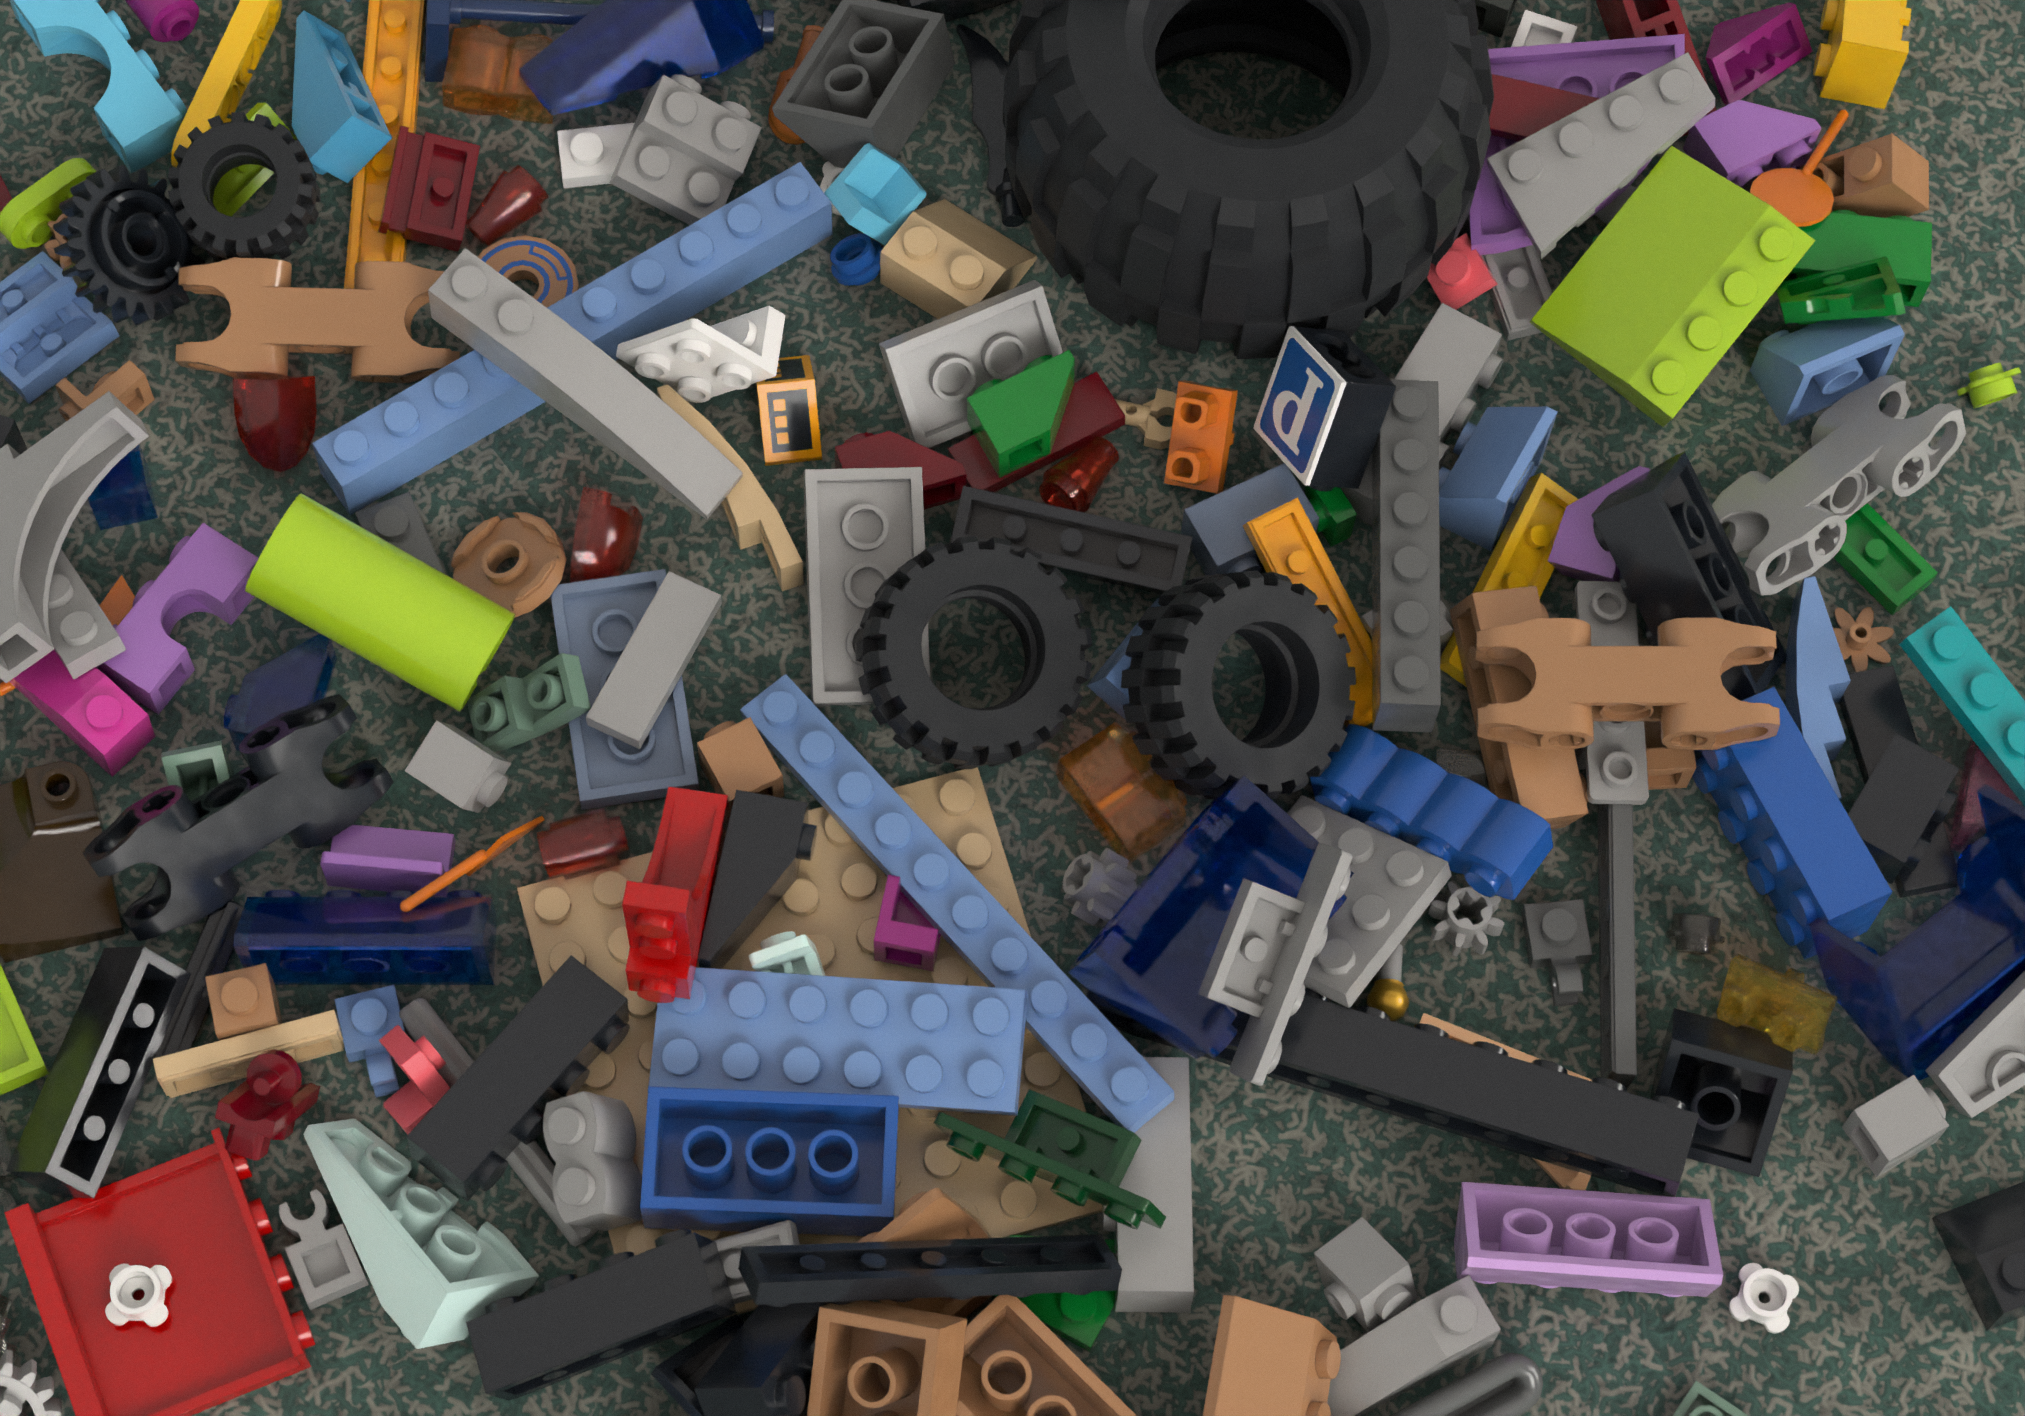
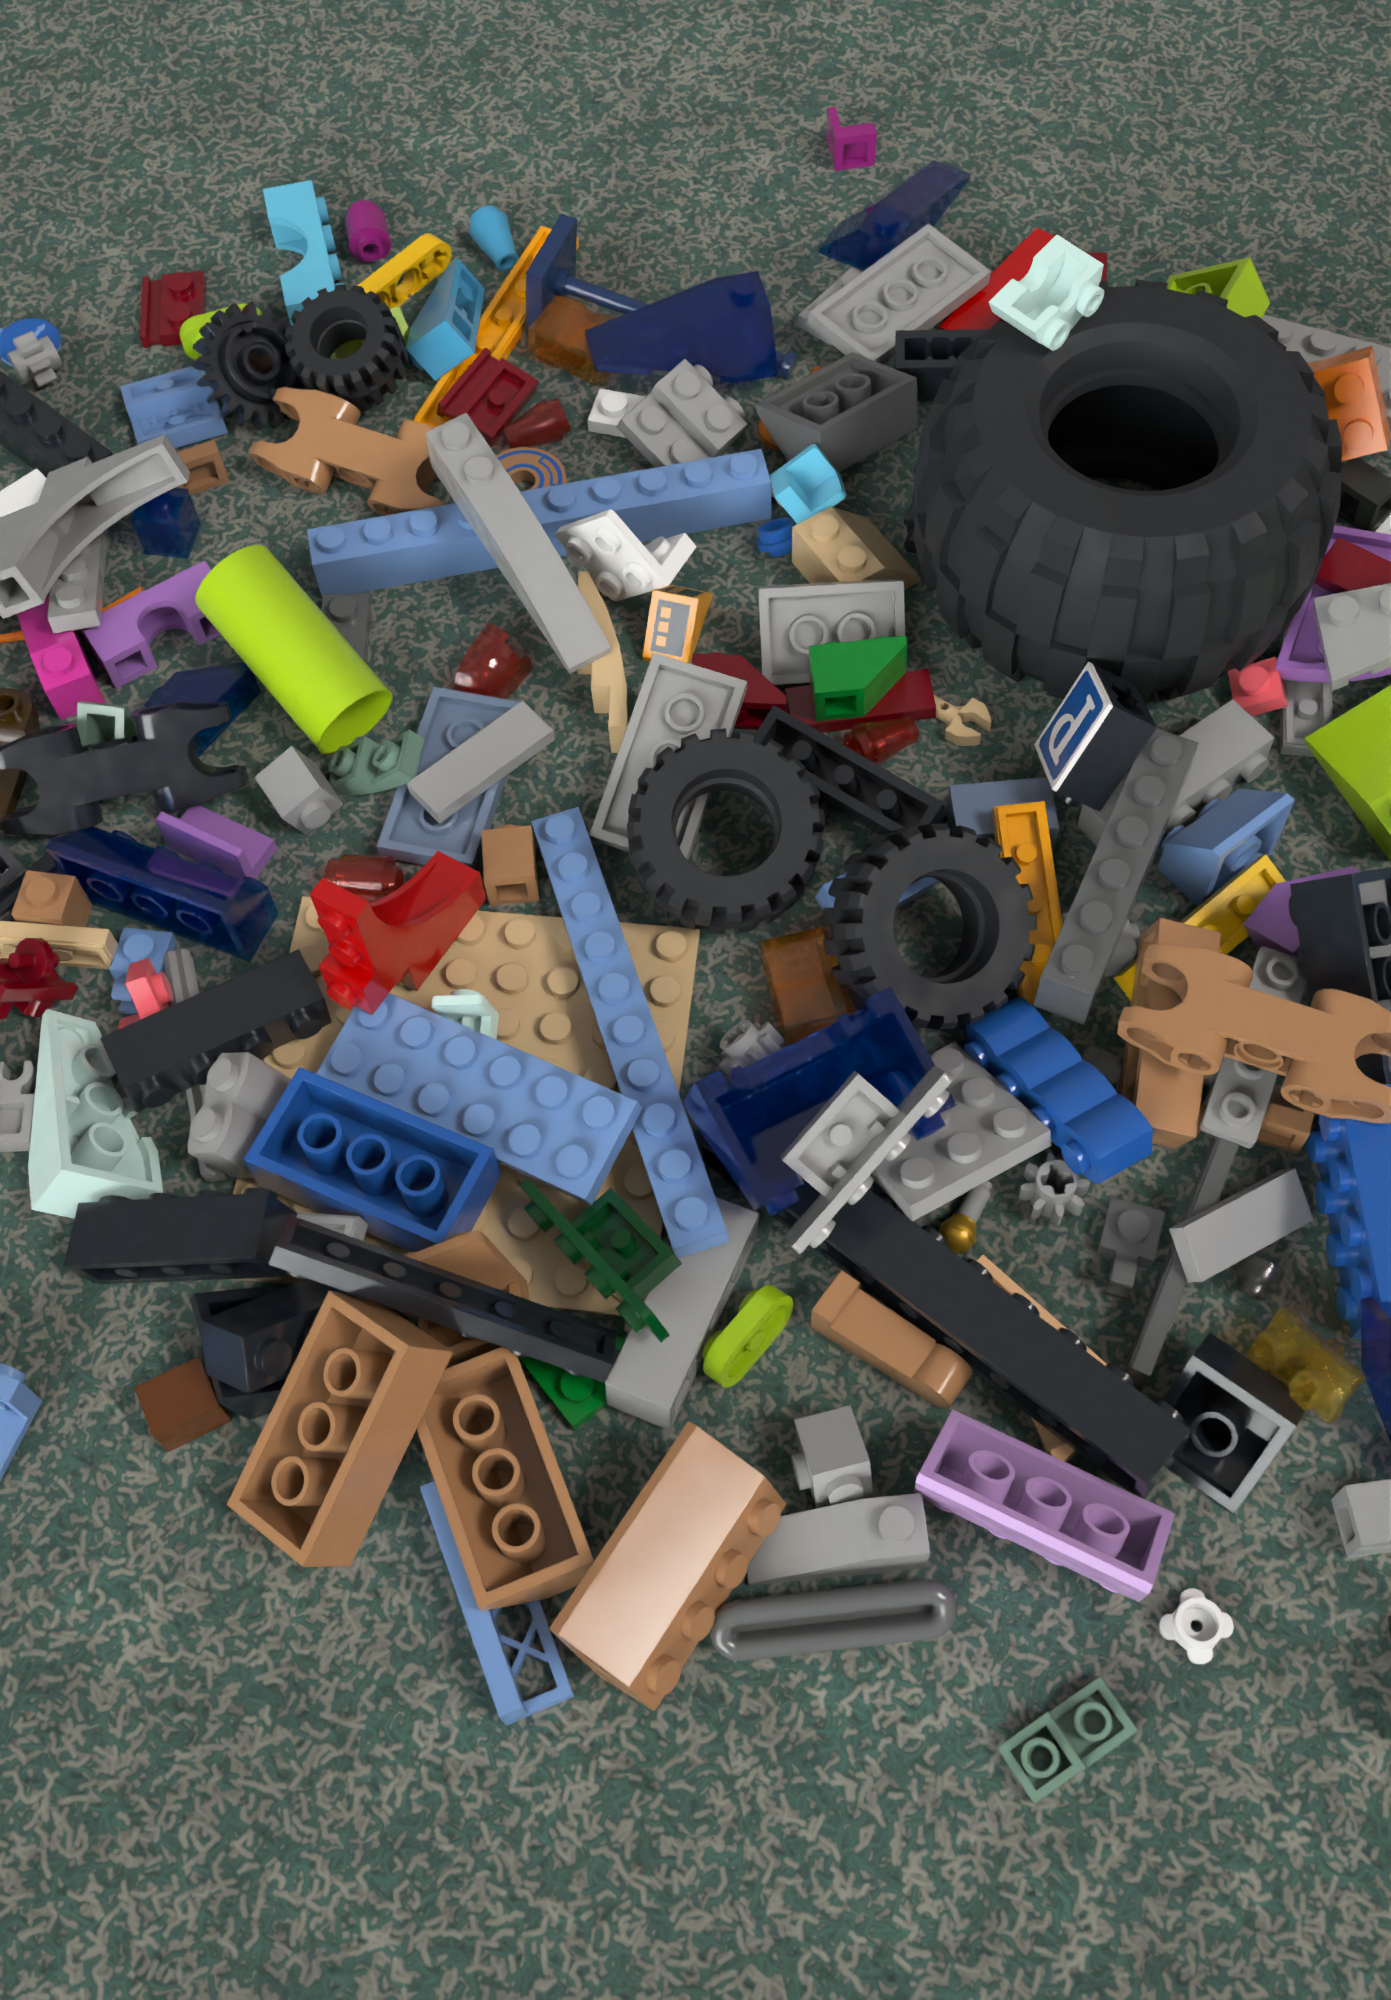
camera: 30 degrees right, 5 degrees down
(276, 418) = (300, 507): clear red brick -> none
(469, 865) = (296, 859): orange piece -> none
(530, 580) = (415, 662): medium nougat tile -> none
(755, 870) = (476, 941): black slope -> none
(903, 932) = (572, 1028): magenta panel -> none
(1201, 436) = (988, 737): orange hips -> none
(1231, 1165) = (738, 1347): none -> lime plate
(1335, 514) = (1073, 831): green plate -> none
(1369, 1139) = (889, 1342): none -> medium nougat leg
(1664, 887) = (1241, 1225): none -> light grey tile

